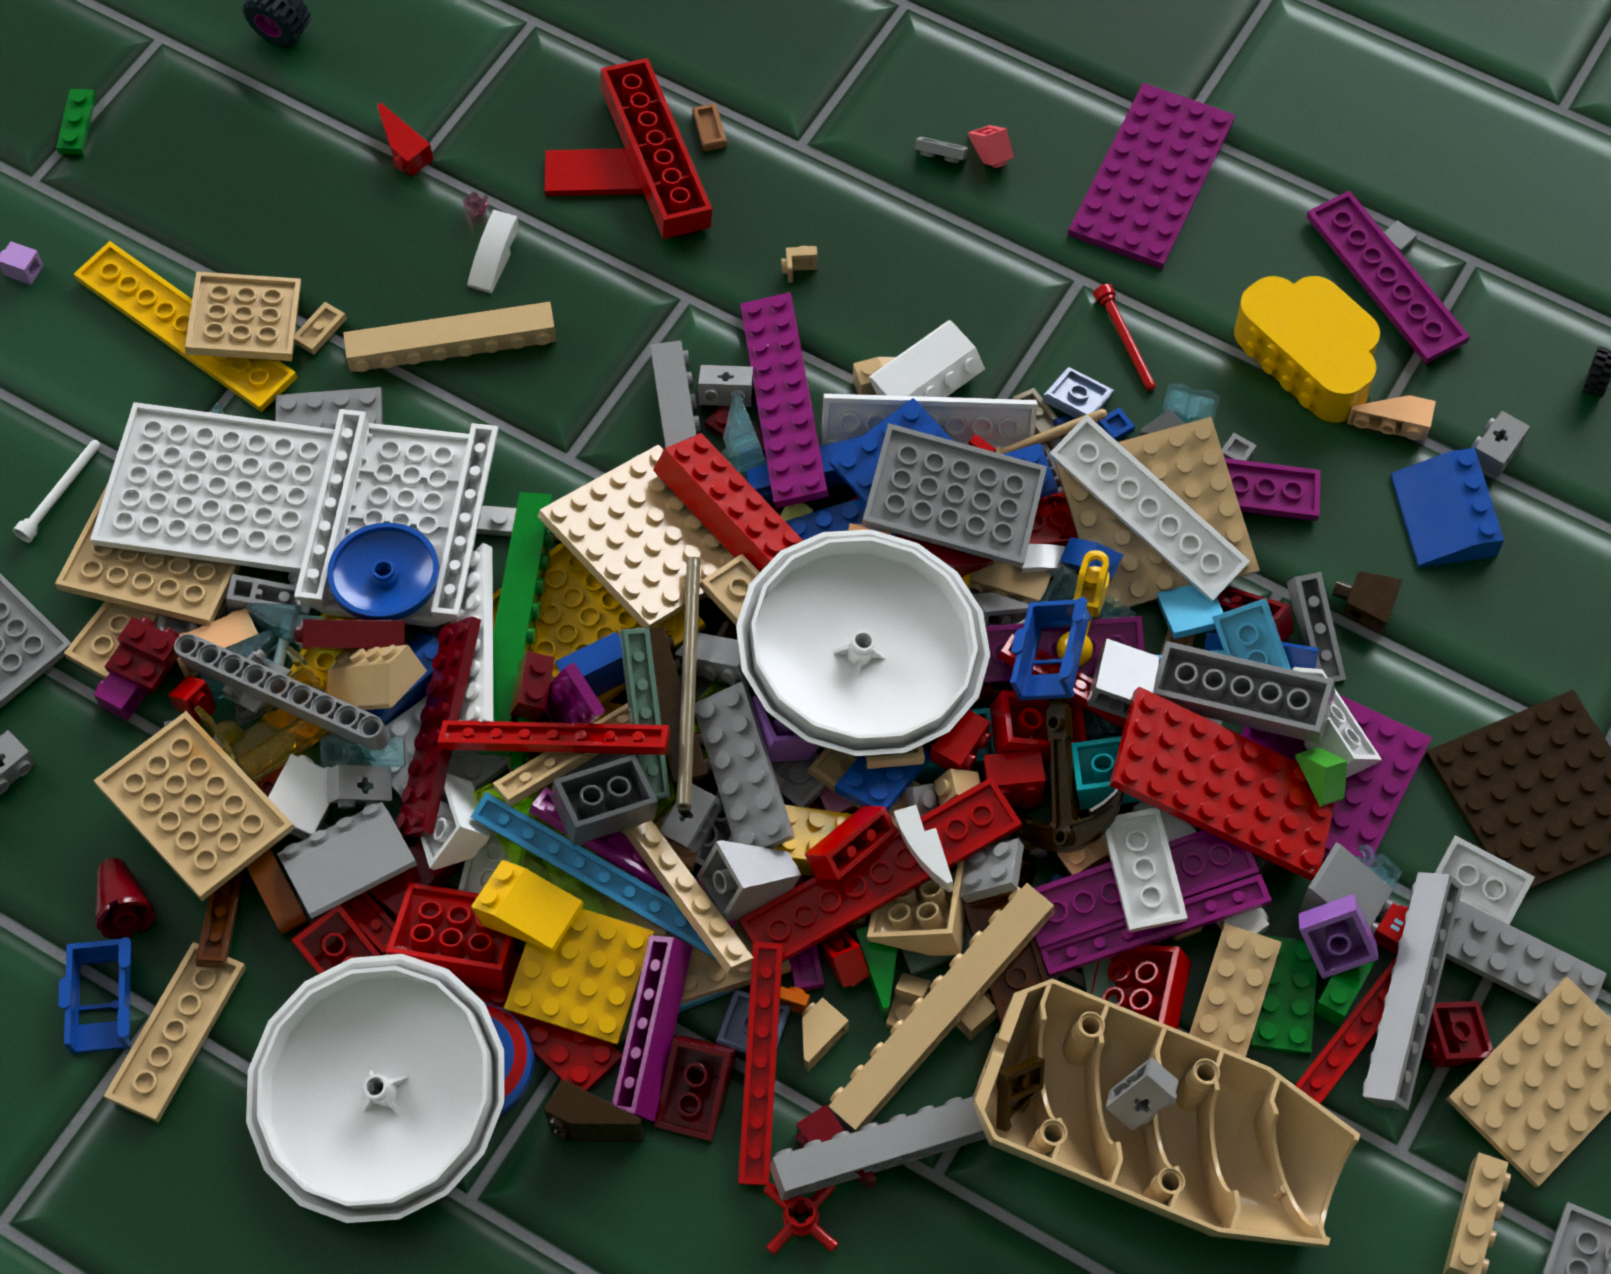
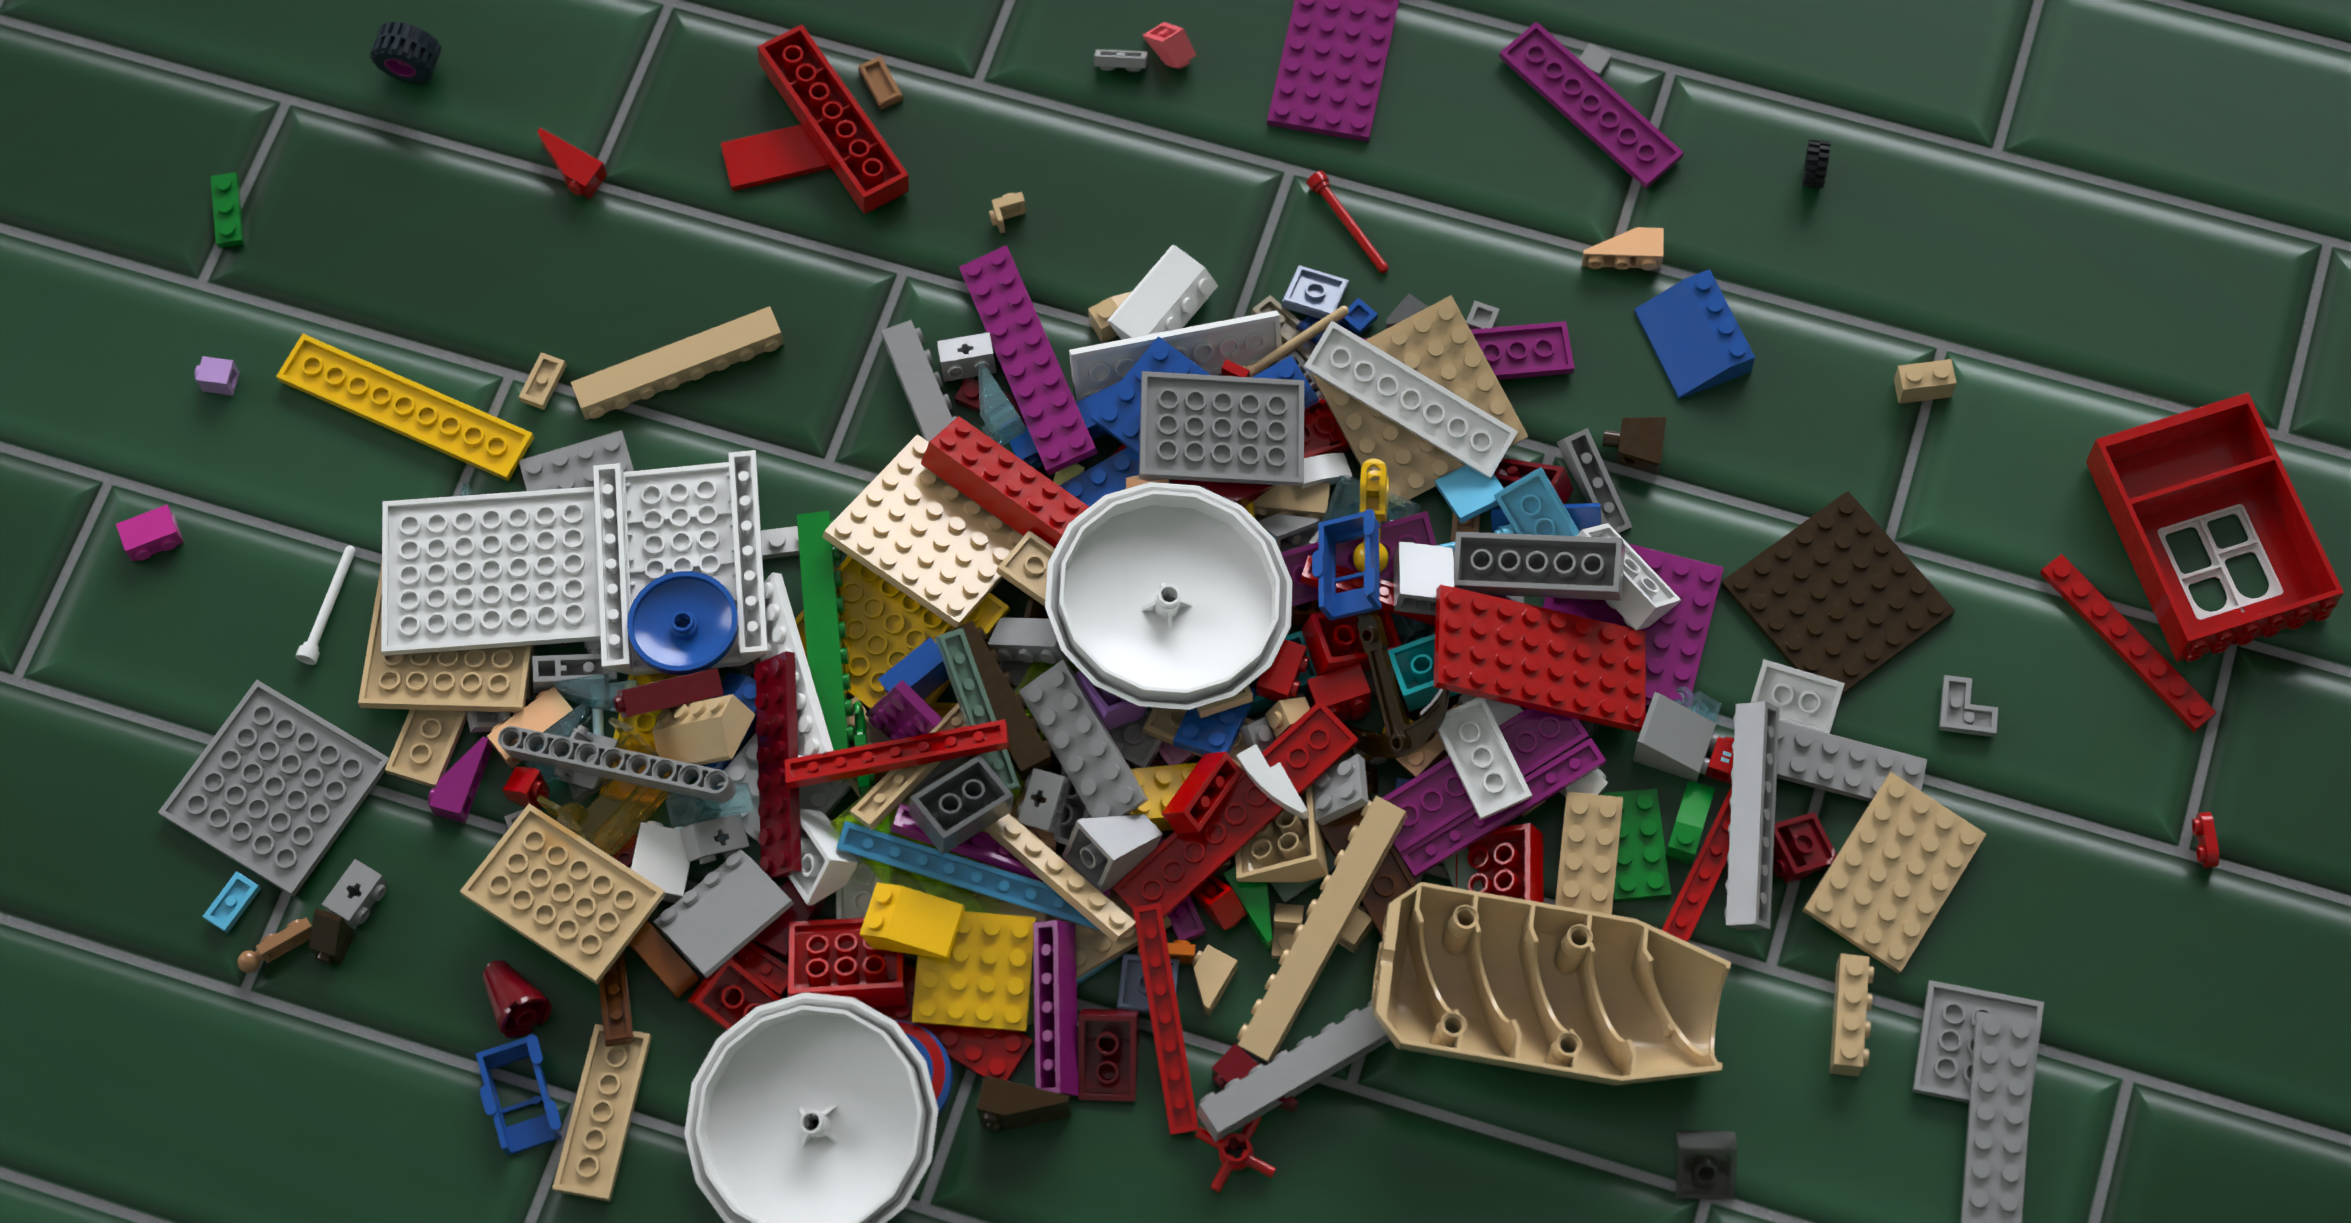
camera: 10 degrees left, 5 degrees up
(143, 654) = (468, 754): dark red plate -> none
(243, 316) = (464, 386): tan plate -> none
(476, 203) = (667, 215): clear pink plate -> none
(493, 251) = (696, 263): white slope -> none
(532, 686) = (861, 707): dark red brick -> none
(688, 687) = (1011, 671): dark tan piece -> none
(1017, 1088) = (1411, 990): dark brown wing -> none
(1077, 548) = (1353, 456): blue slope -> none
(1142, 1094) = (1525, 970): light grey brick -> none
(1189, 403) = (1426, 282): clear light blue brick -> none
(1310, 342) = (1530, 192): yellow brick -> none
(1324, 774) = (1630, 627): bright green slope -> none
(1338, 936) = (1674, 780): medium lavender brick -> none
(1500, 442) = (1739, 245): light grey brick -> none

